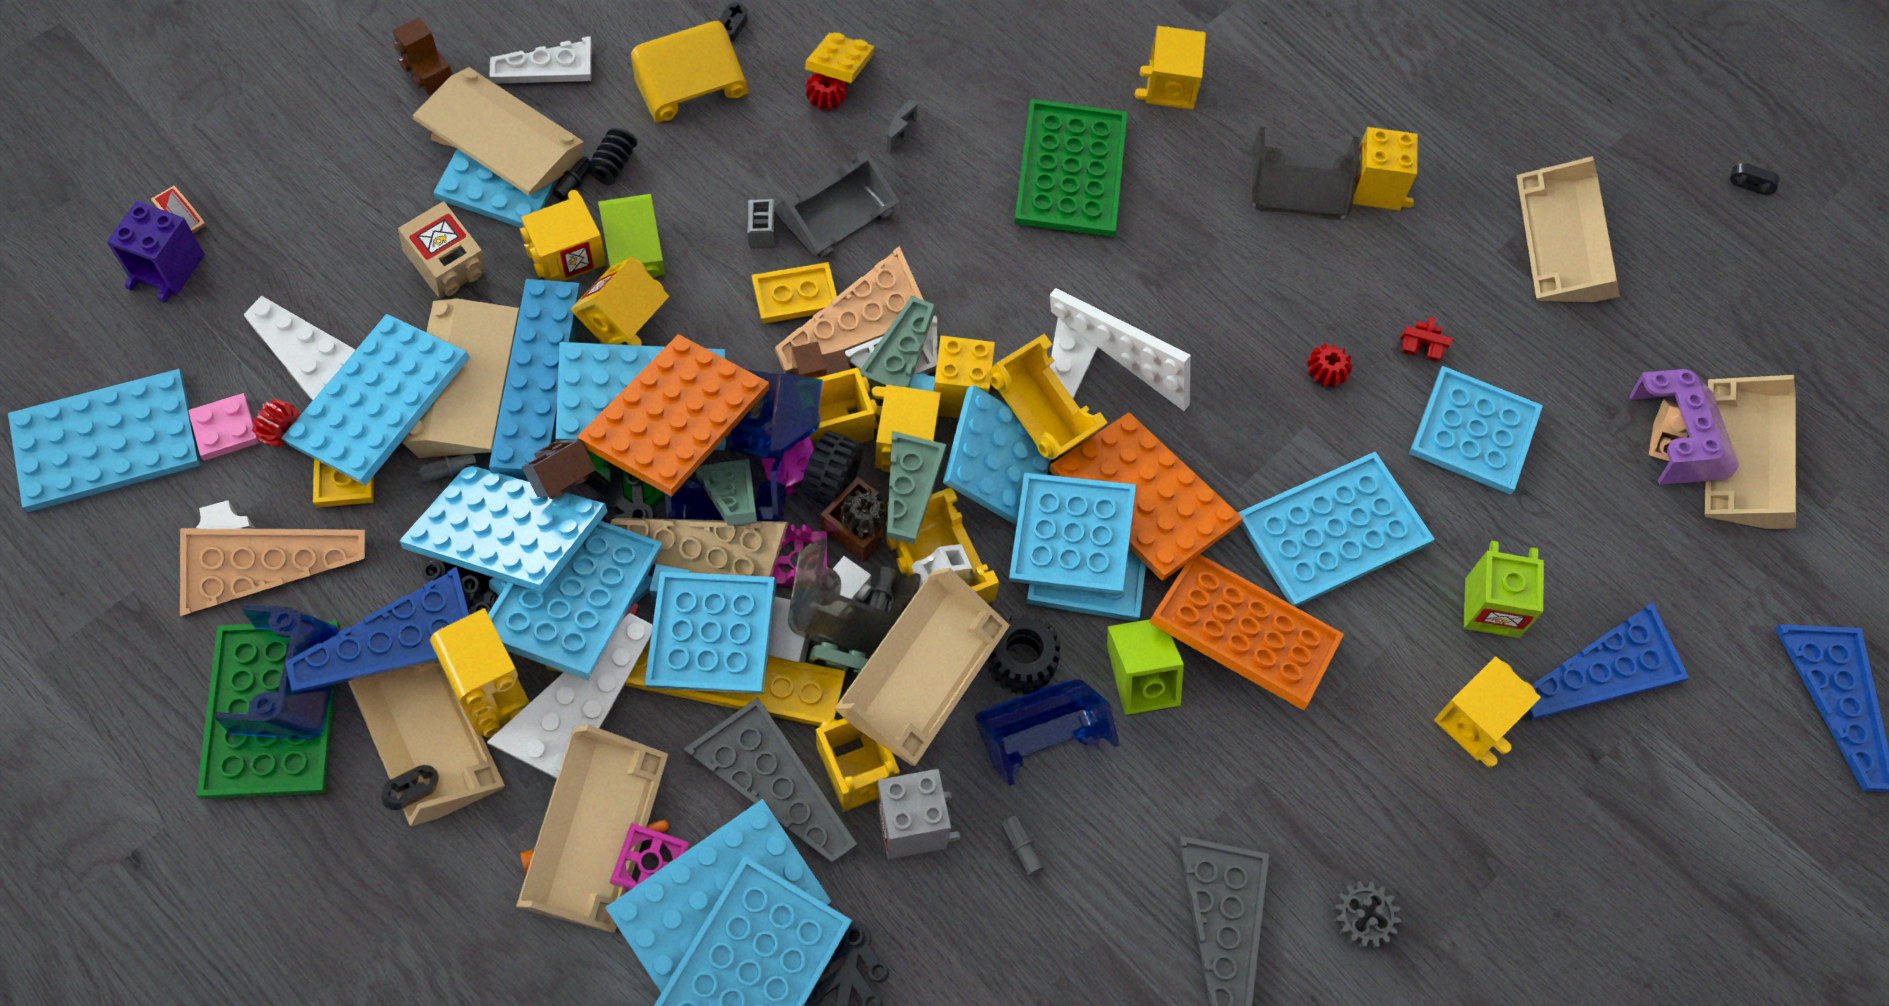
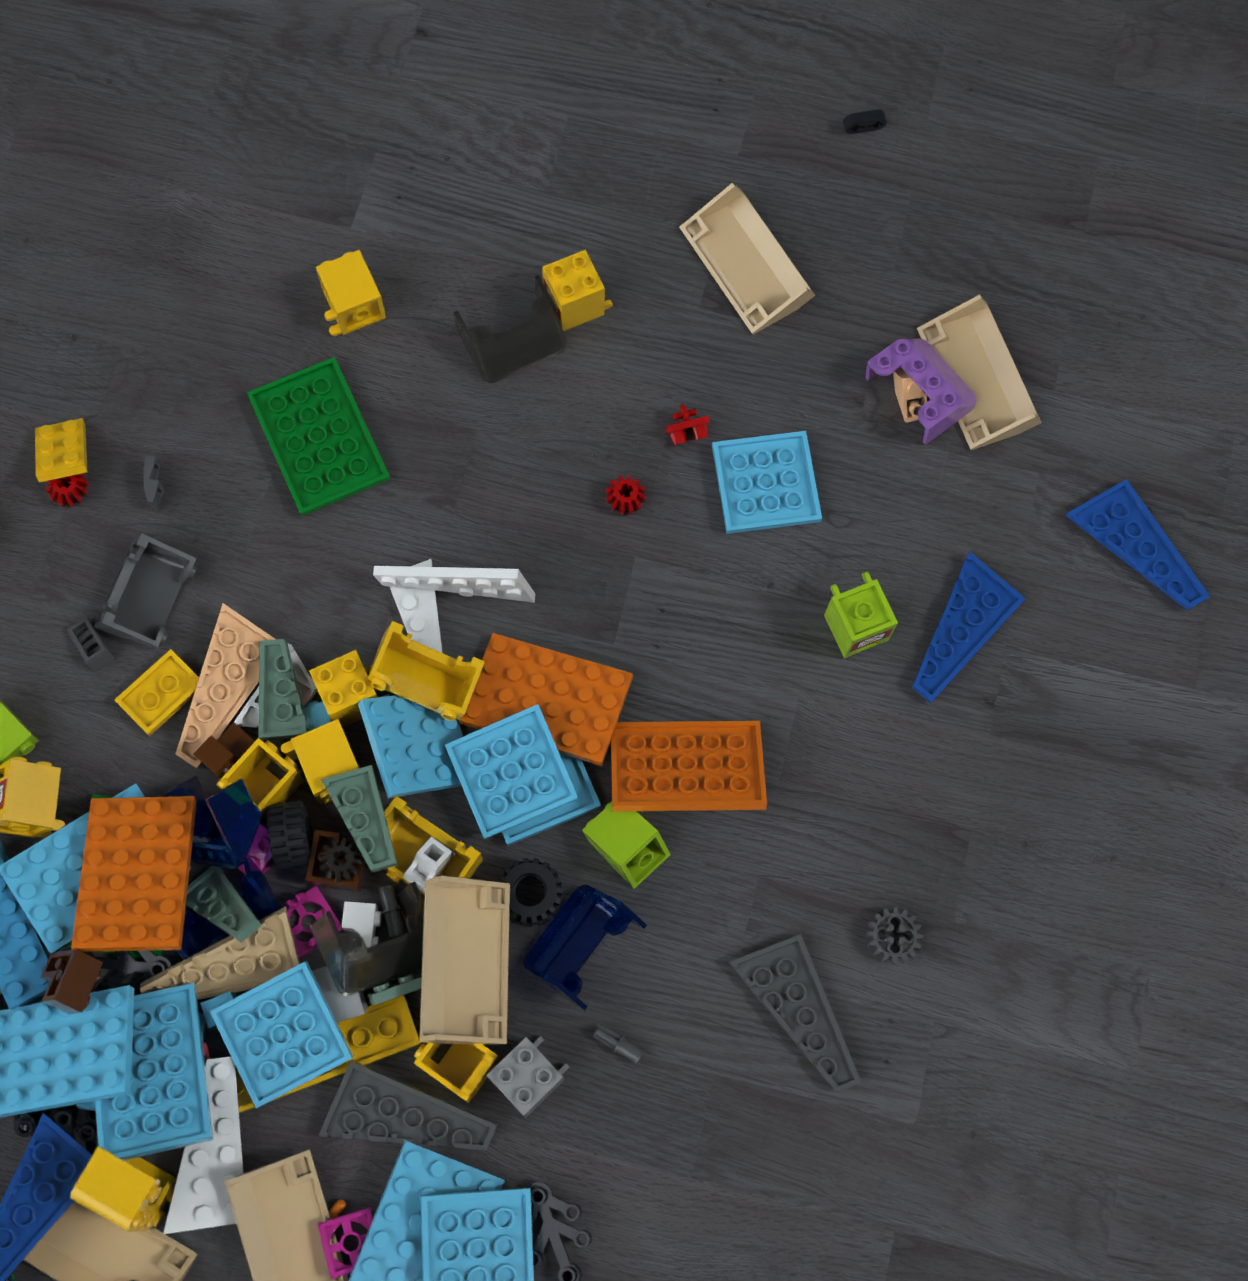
camera: 30 degrees left, 10 degrees up
(1334, 529) = (705, 635): medium azure plate -> none
(1487, 710) = (897, 719): yellow container -> none

